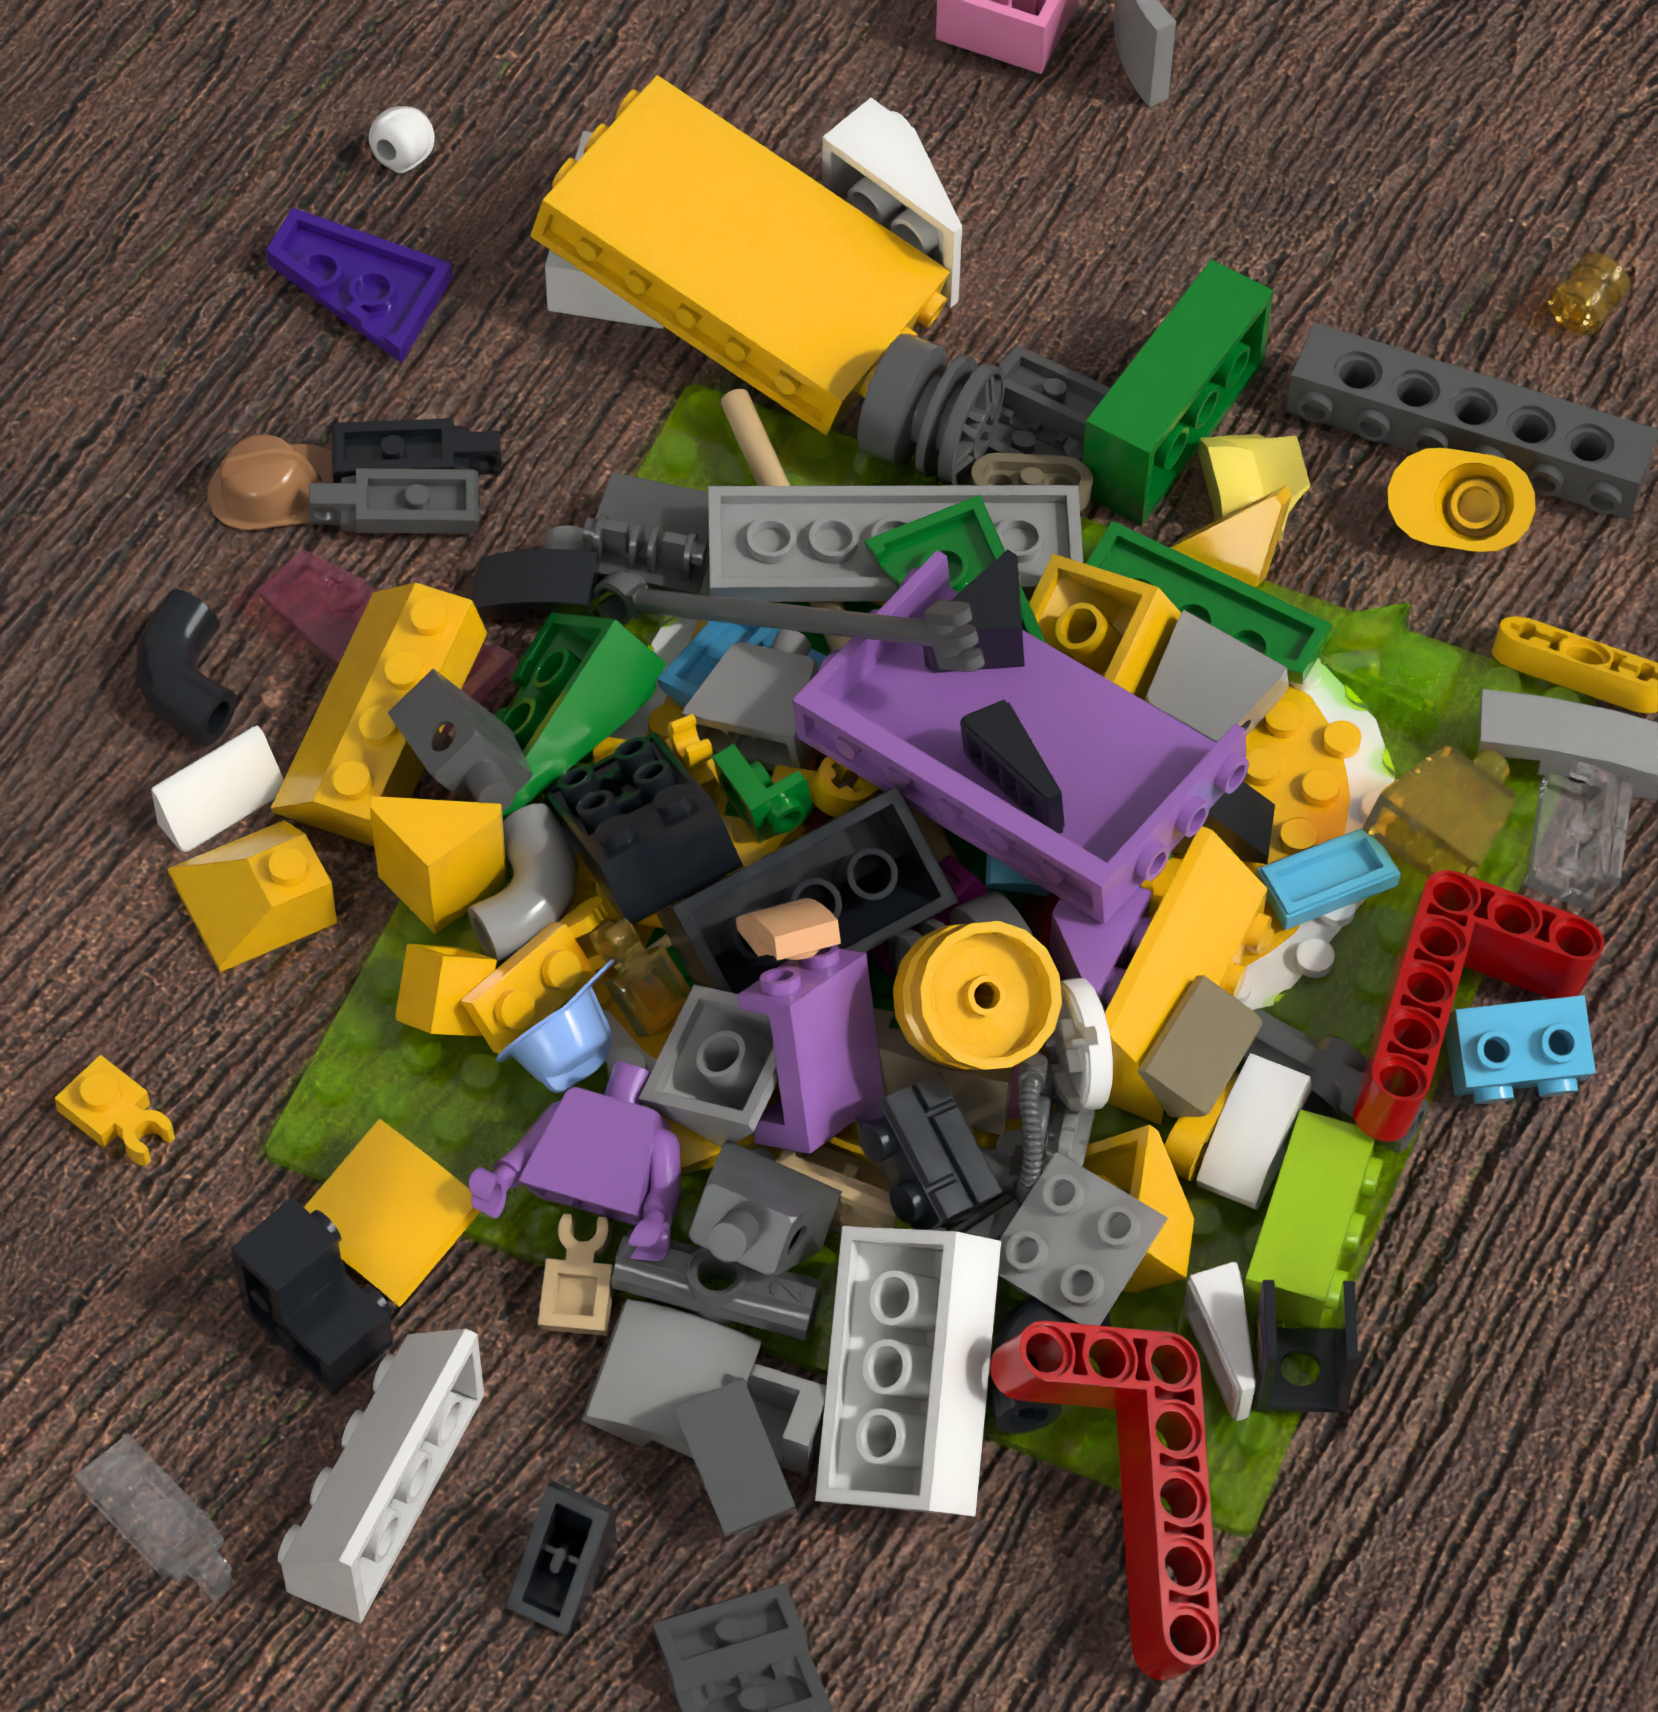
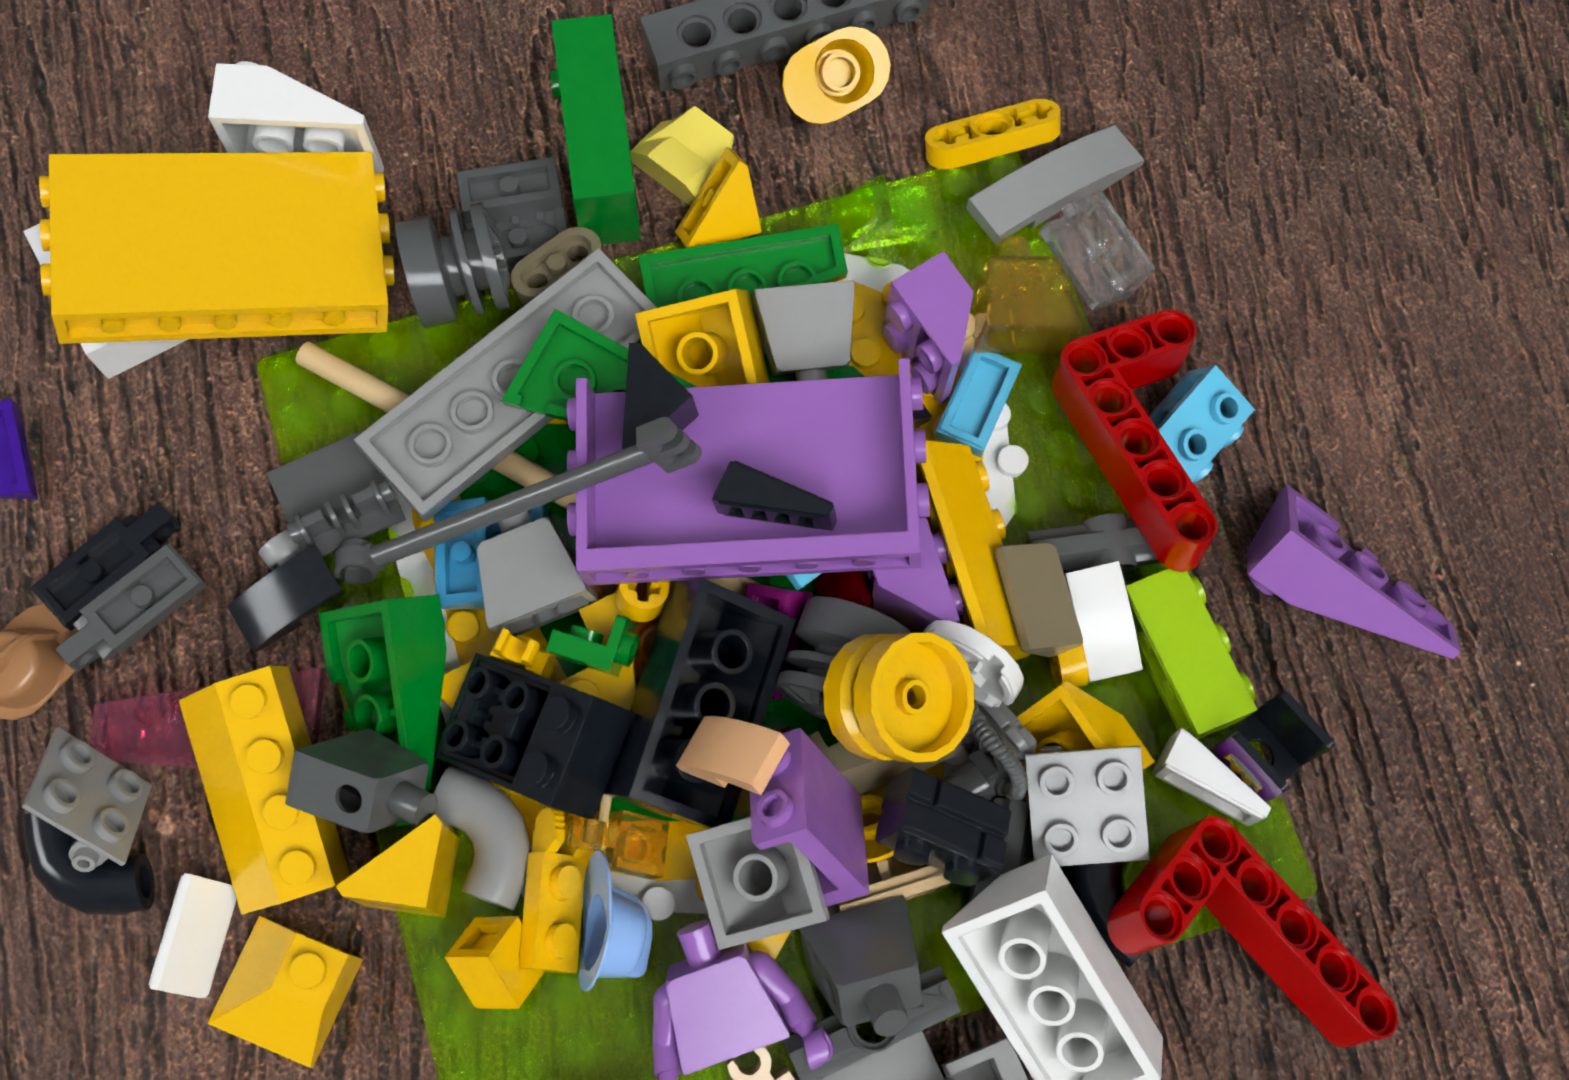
camera: 45 degrees left, 15 degrees up
(234, 610) = (88, 800): none -> light grey hinge
(1332, 763) = (929, 322): none -> medium lavender slope
(1530, 1256) = (1315, 570): none -> medium lavender wedge

